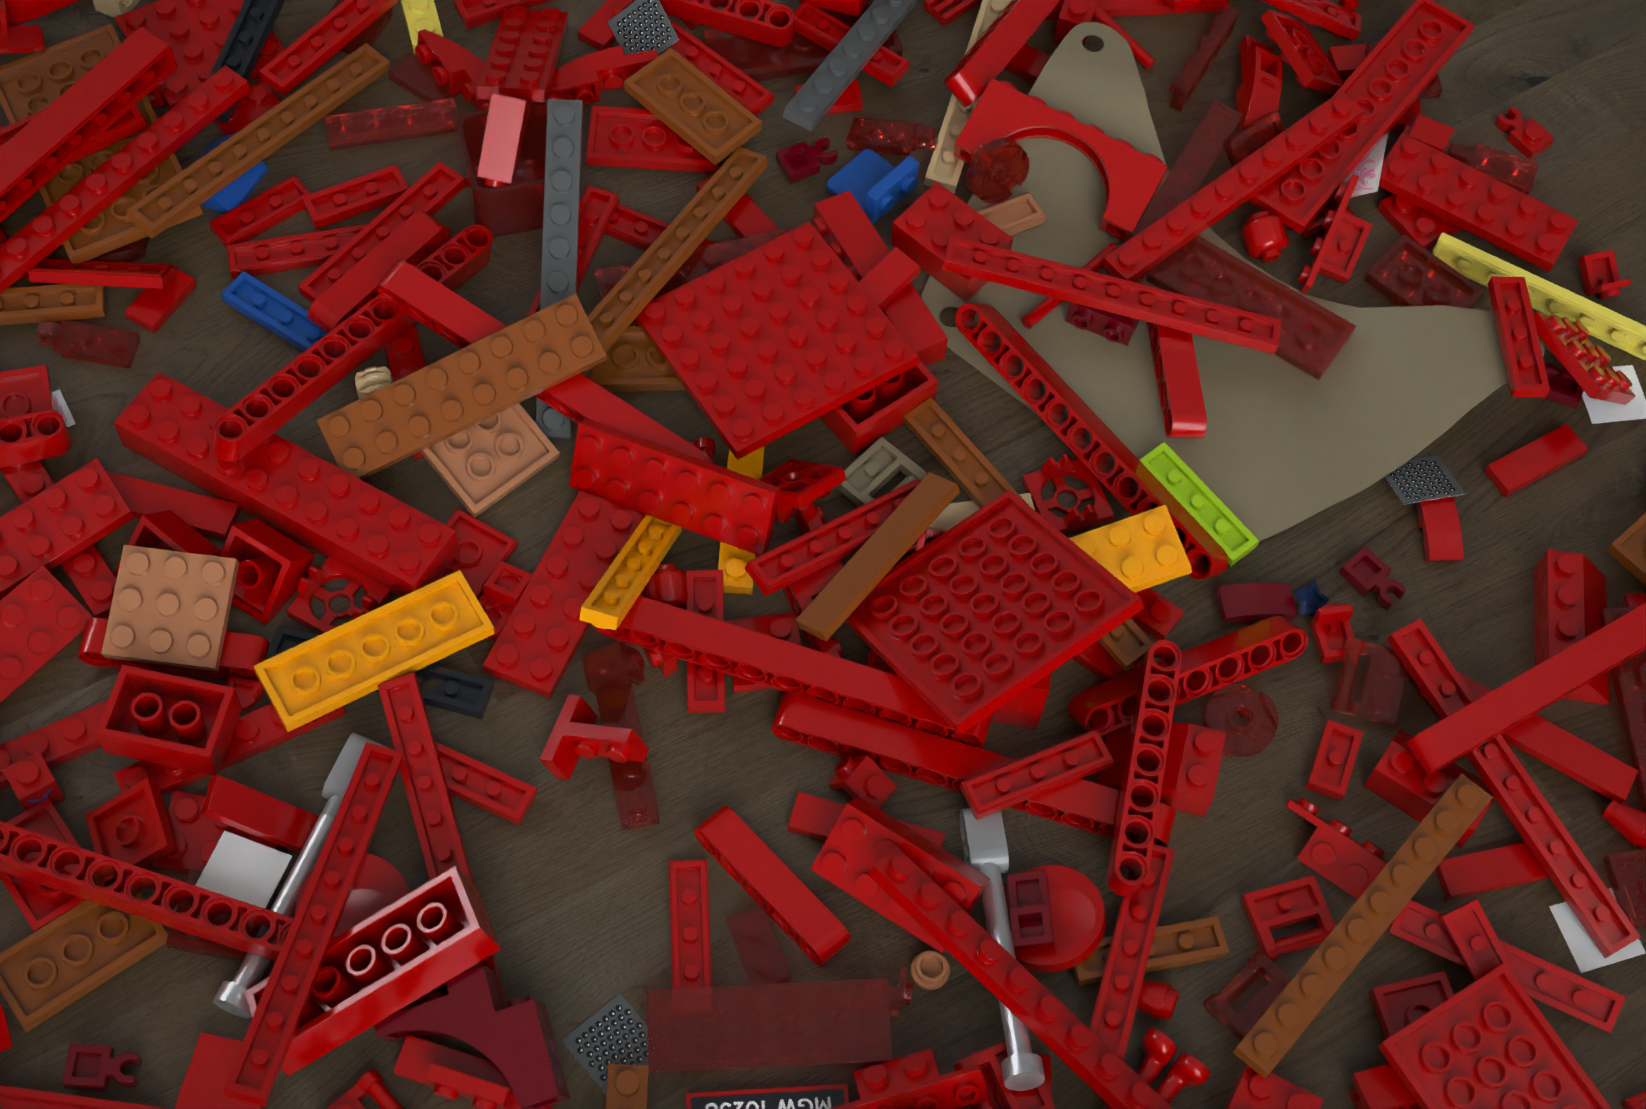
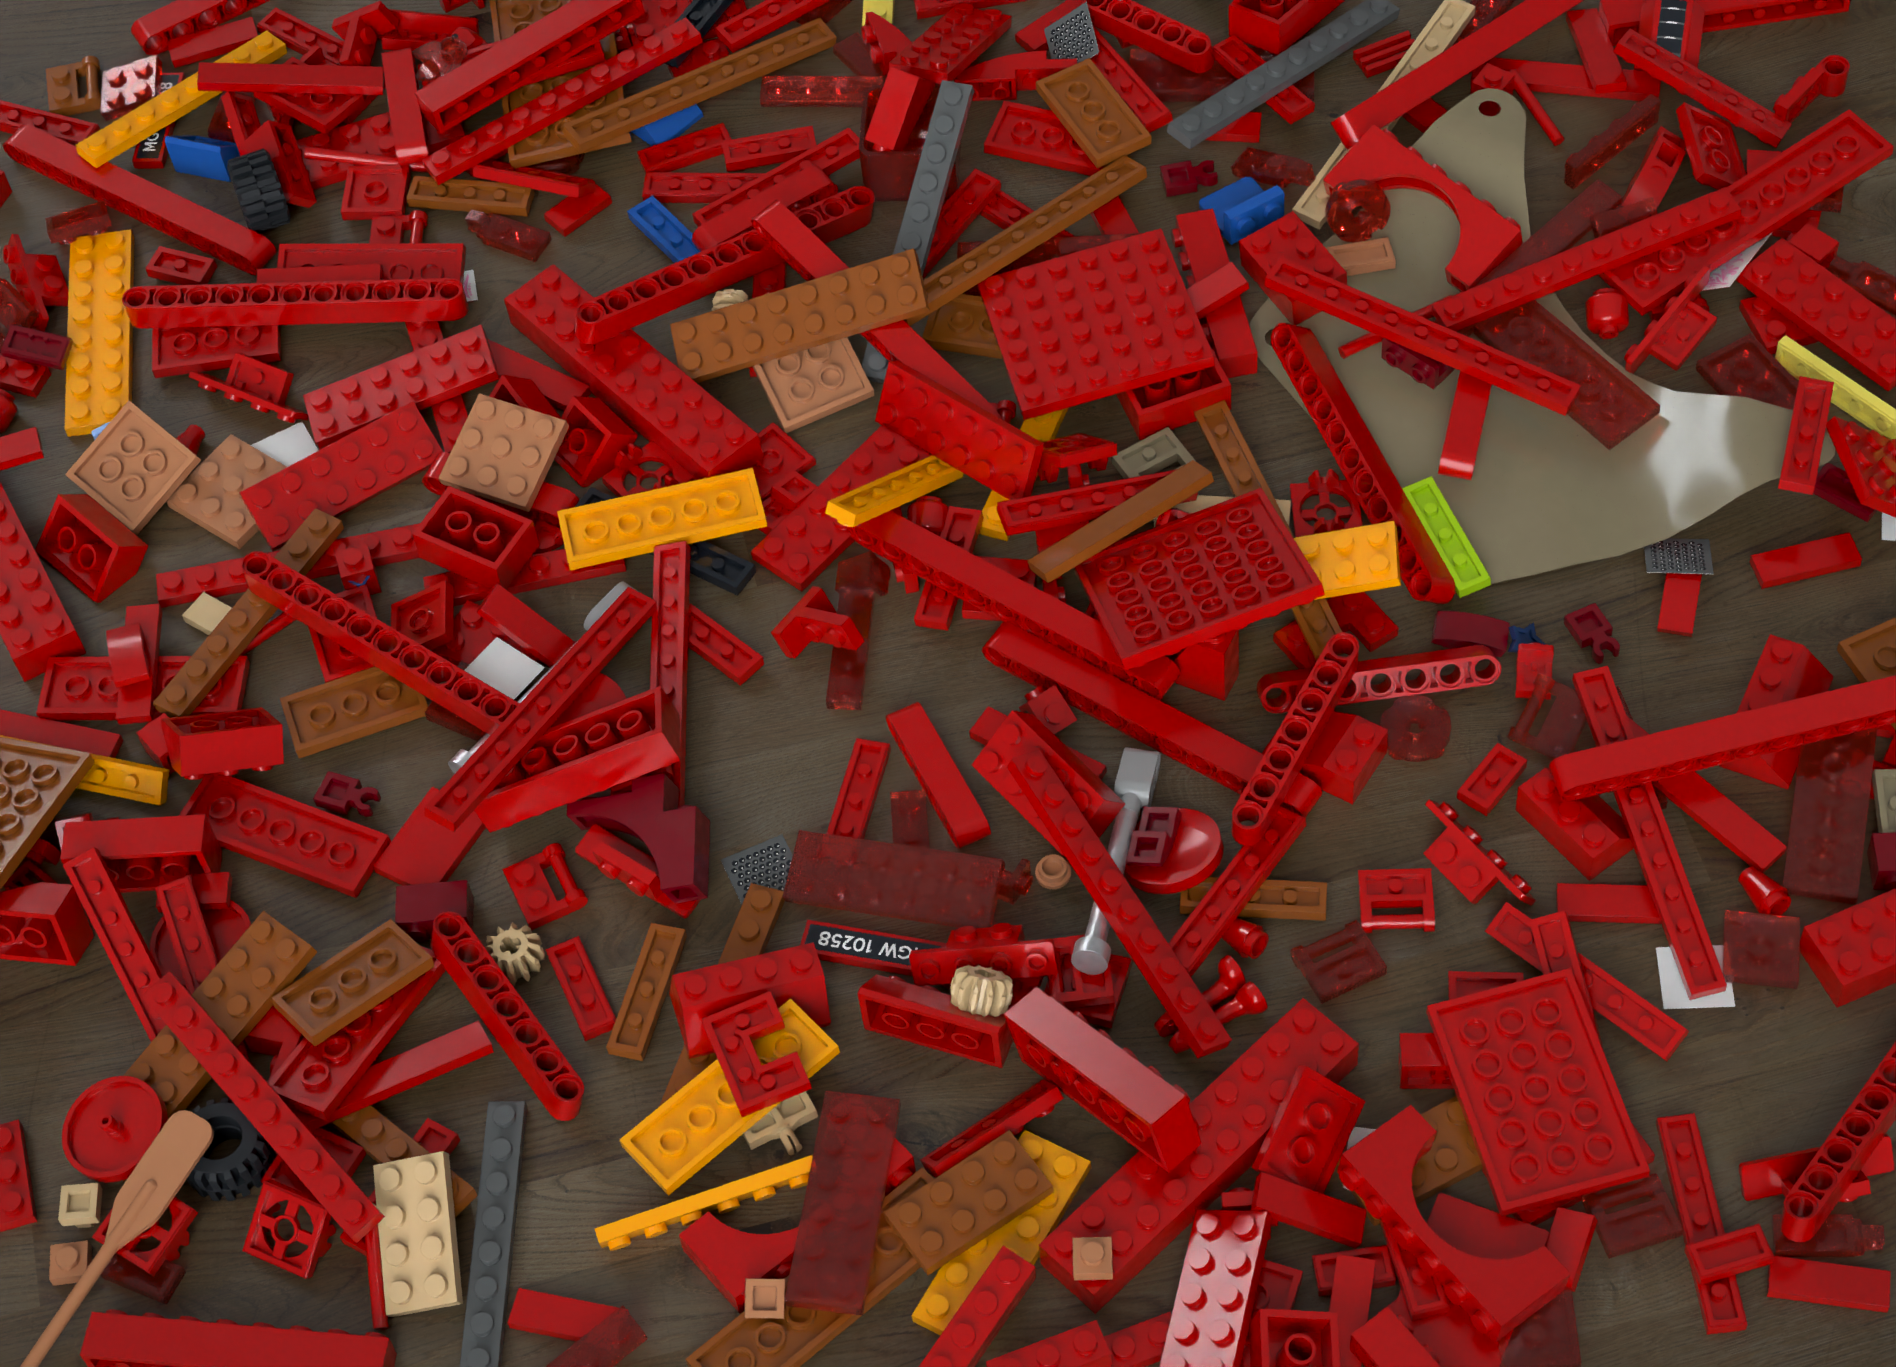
camera: 30 degrees right, 5 degrees down
(1036, 774) = (1200, 729): red tile -> none
(1361, 927) = (1450, 907): dark orange plate -> none

